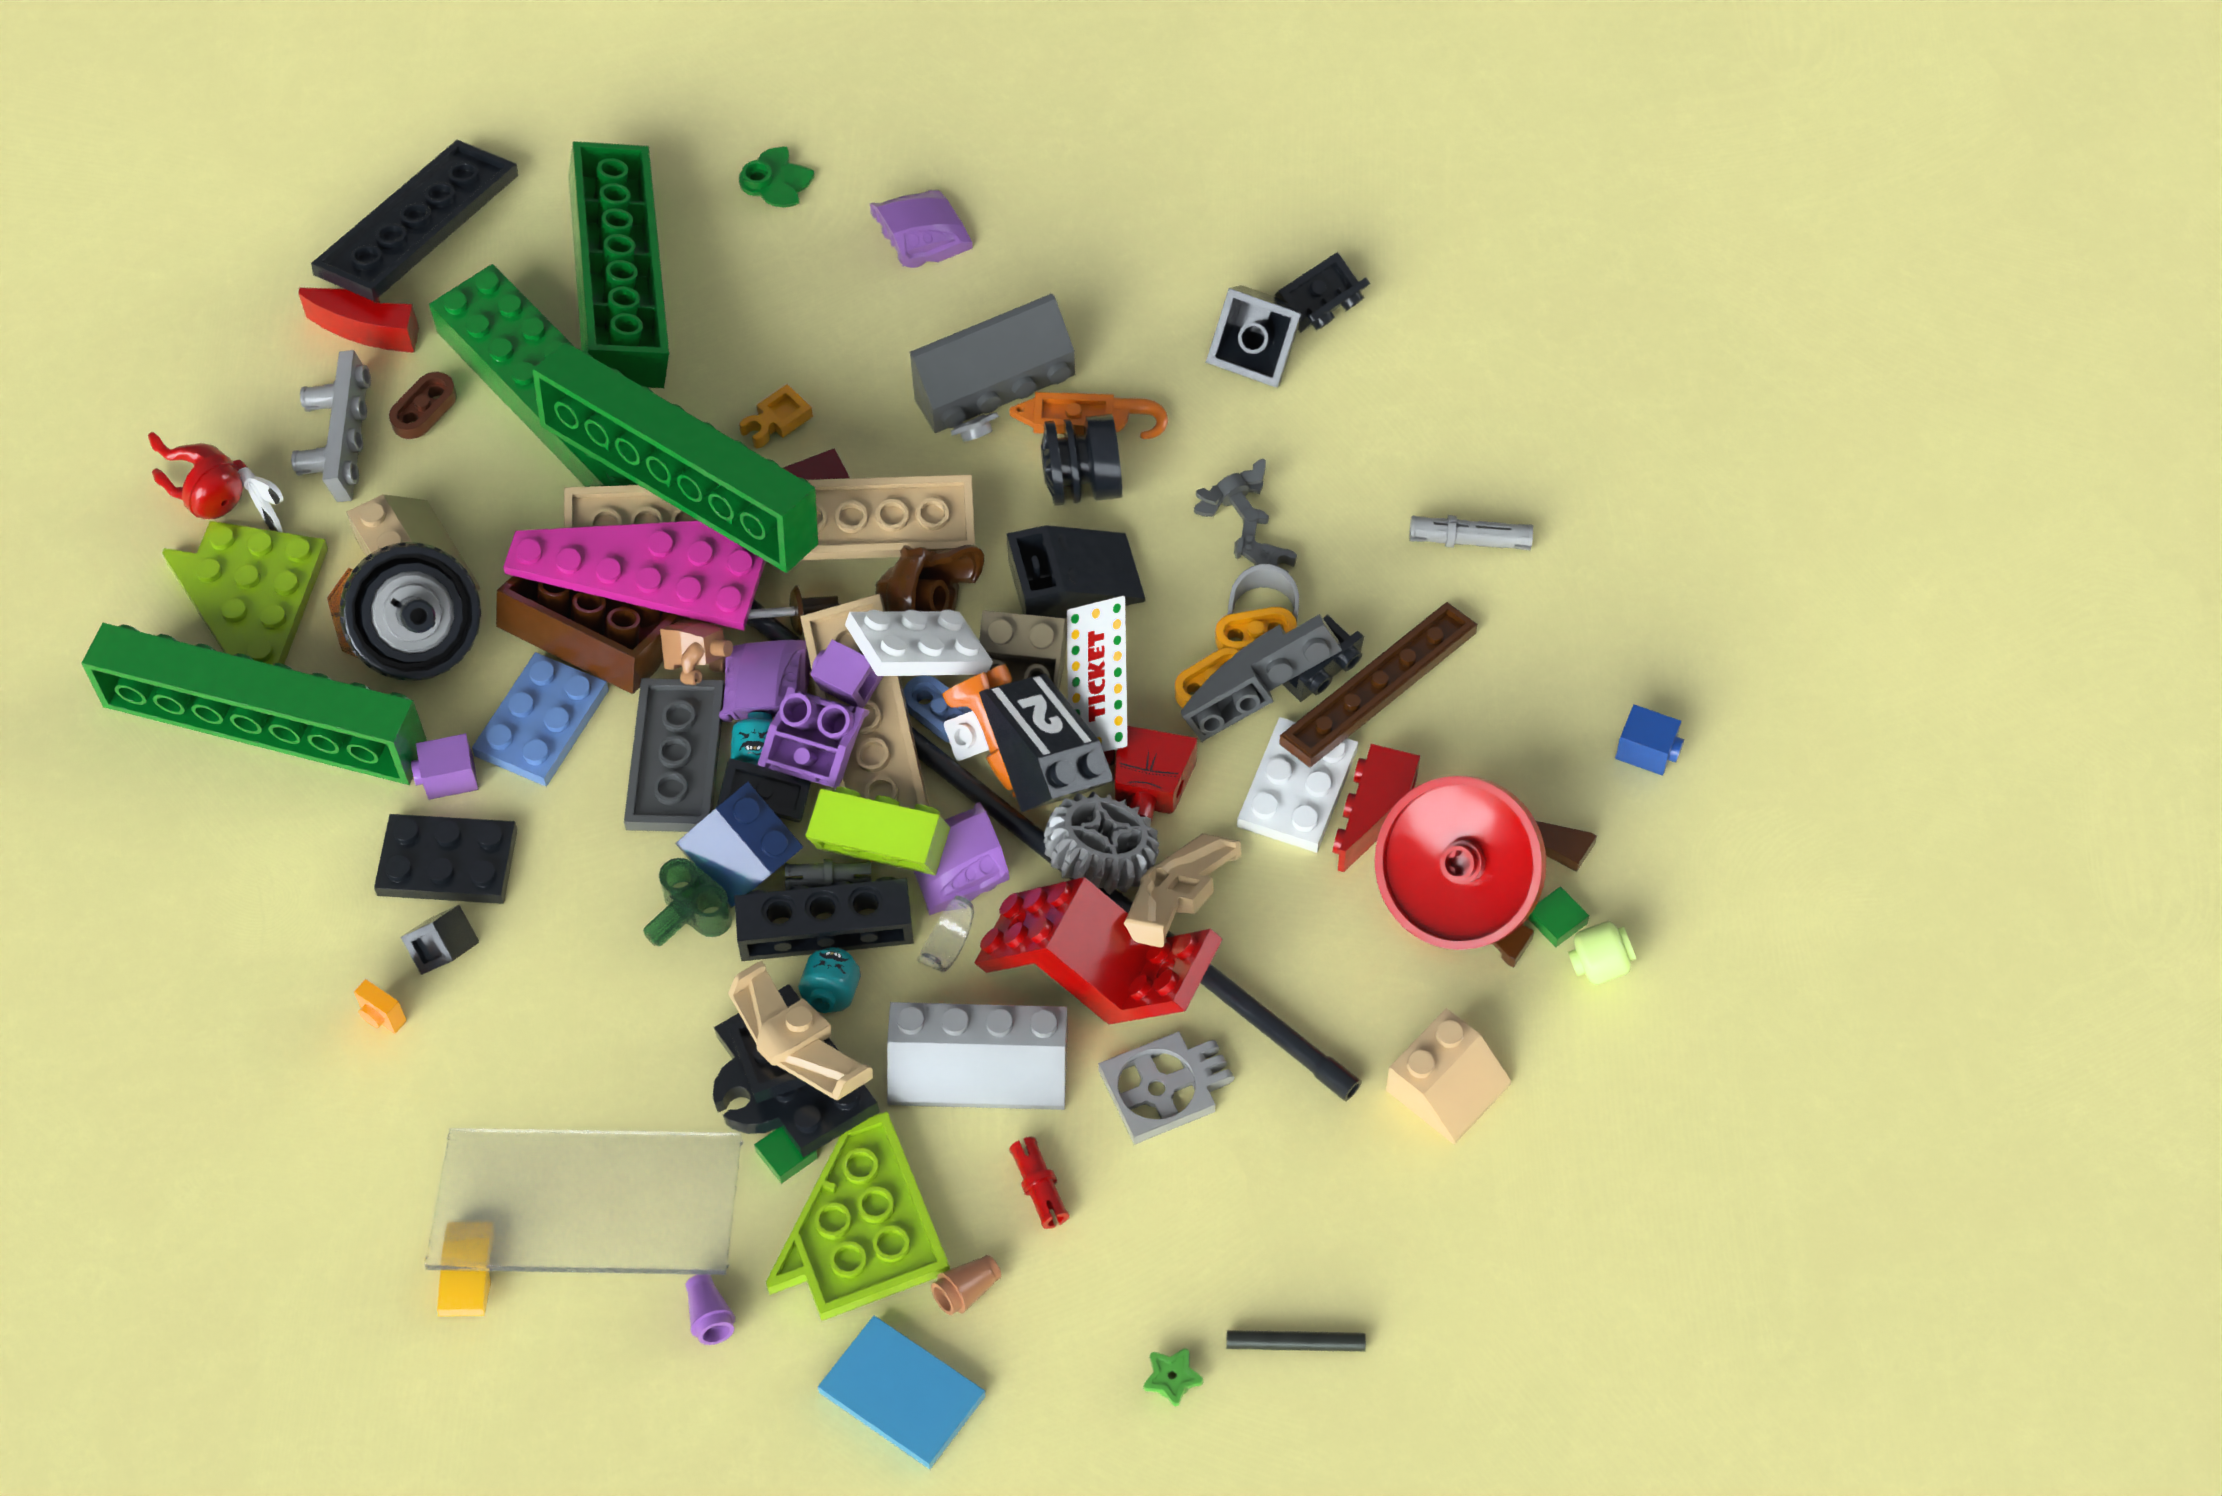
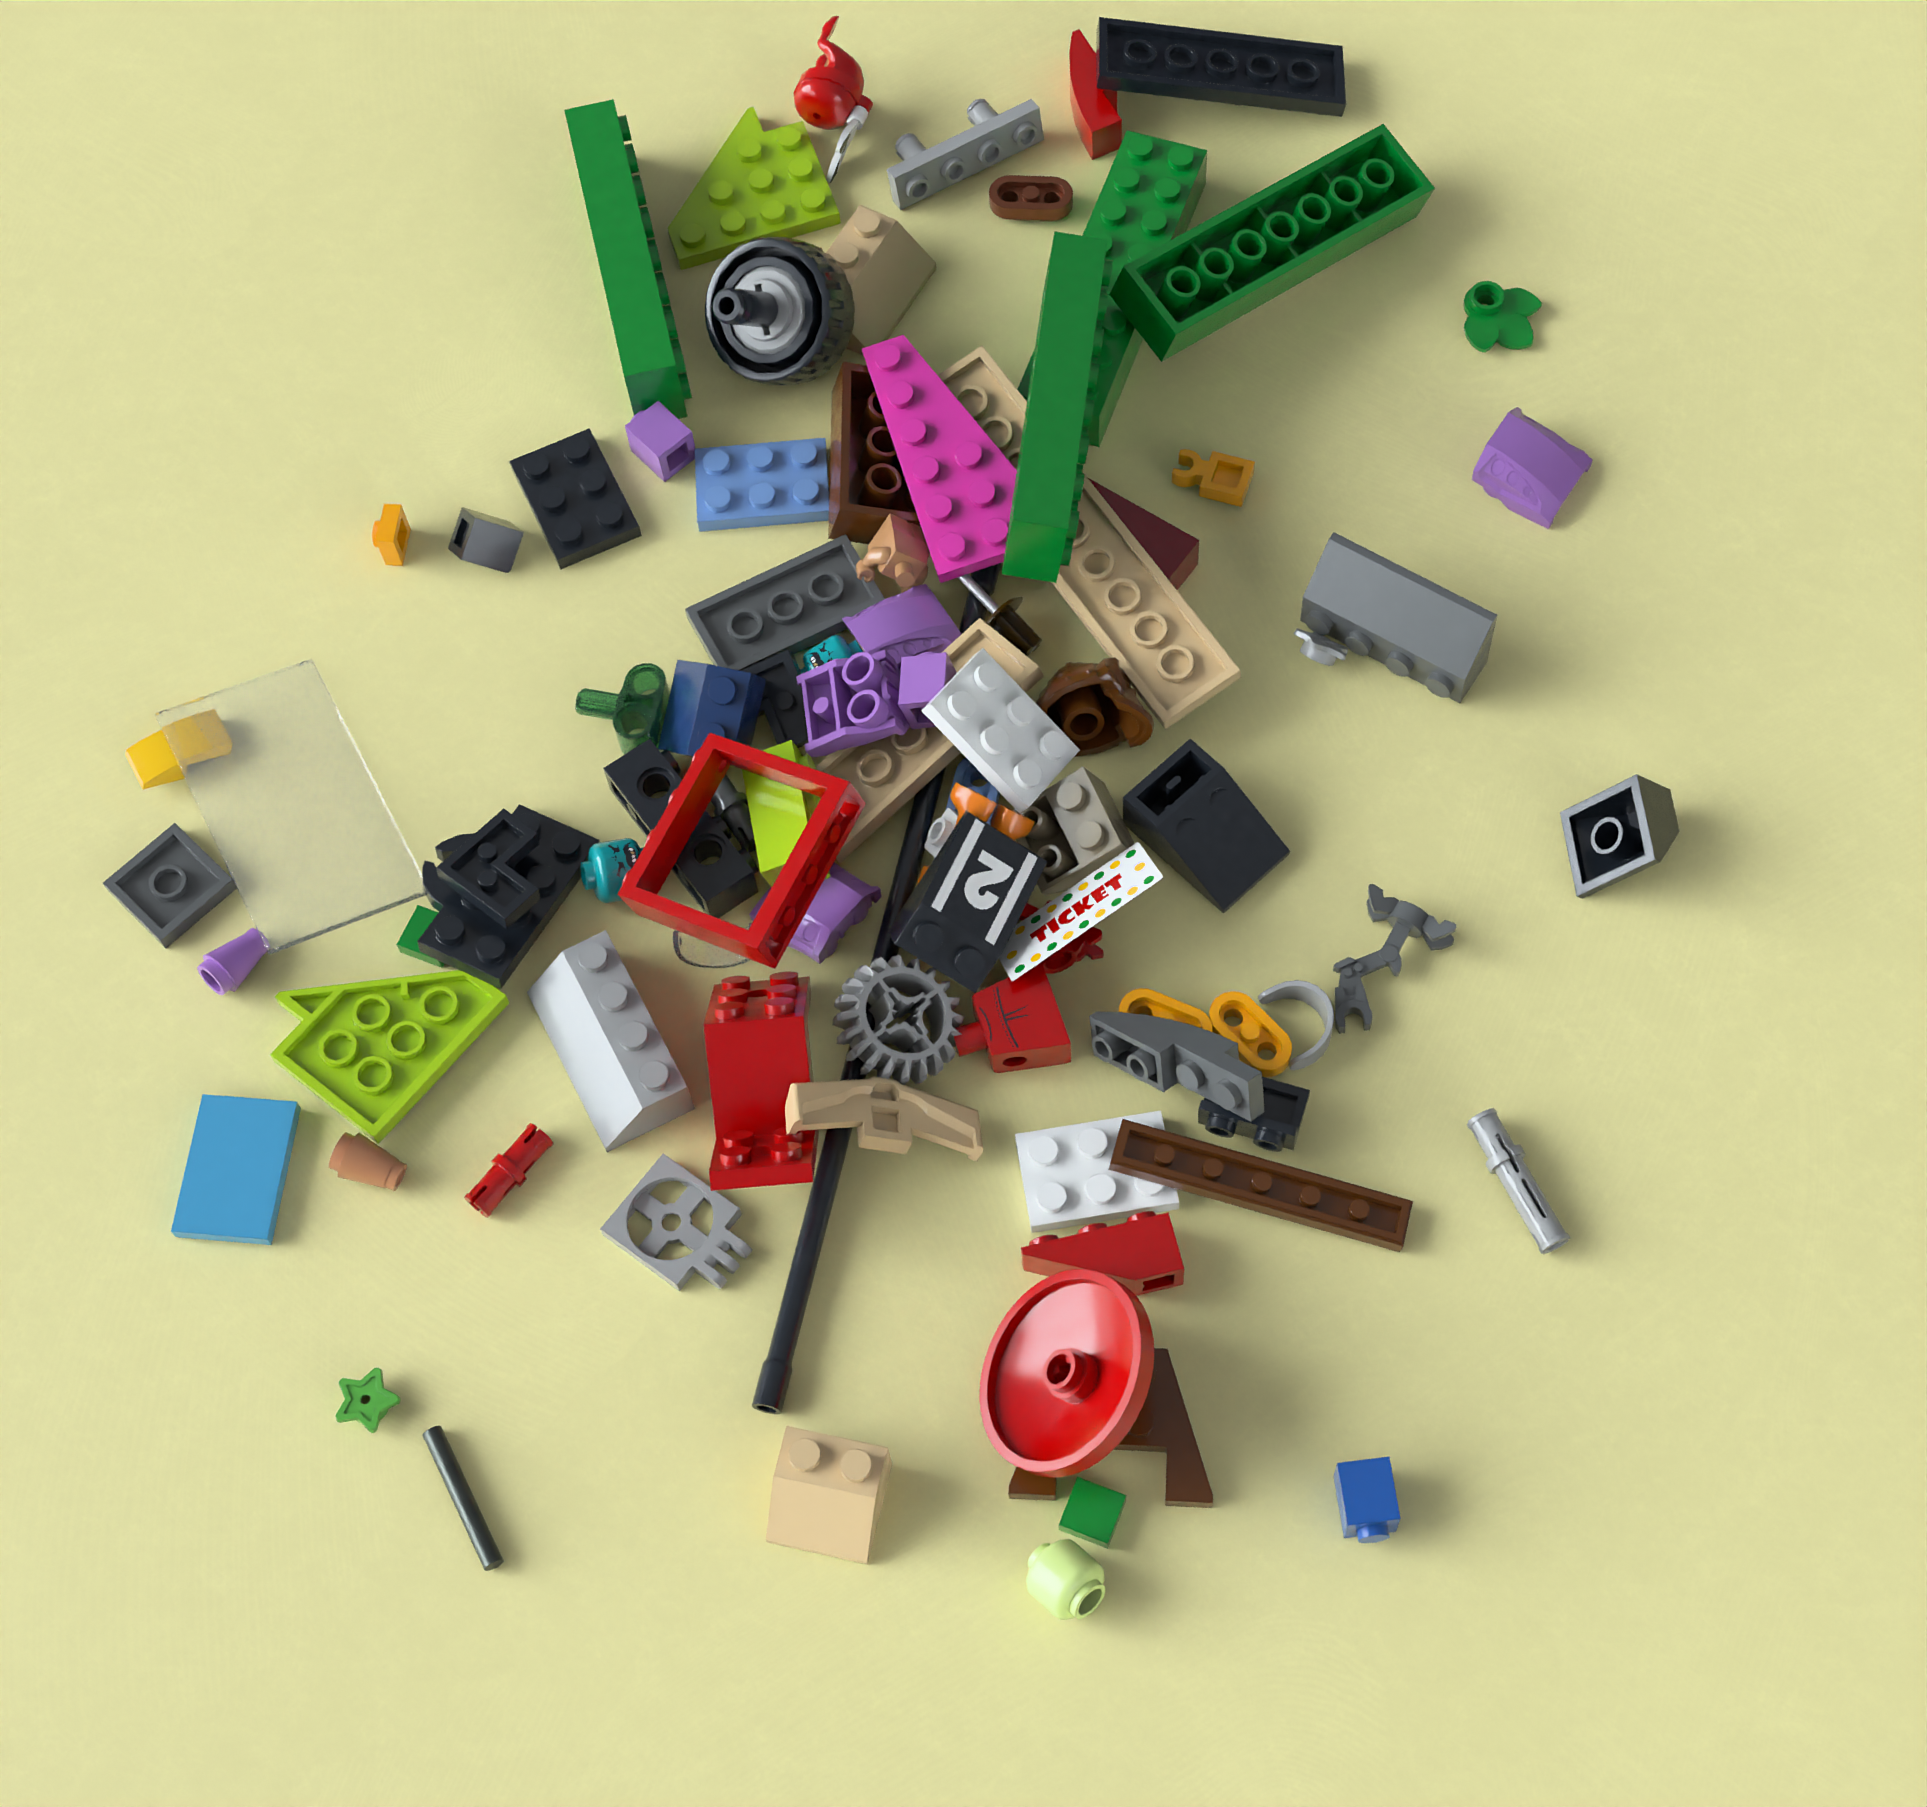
camera: 65 degrees right, 5 degrees up
(592, 1335) = (170, 885): none -> dark grey tile
(794, 1035) = (512, 863): tan plate -> none
(941, 924) = (796, 882): none -> red window
(1078, 406) = (1410, 739): orange plate -> none
(1082, 459) = (1335, 759): black wheel -> none
(1323, 291) = (1723, 871): black bracket -> none

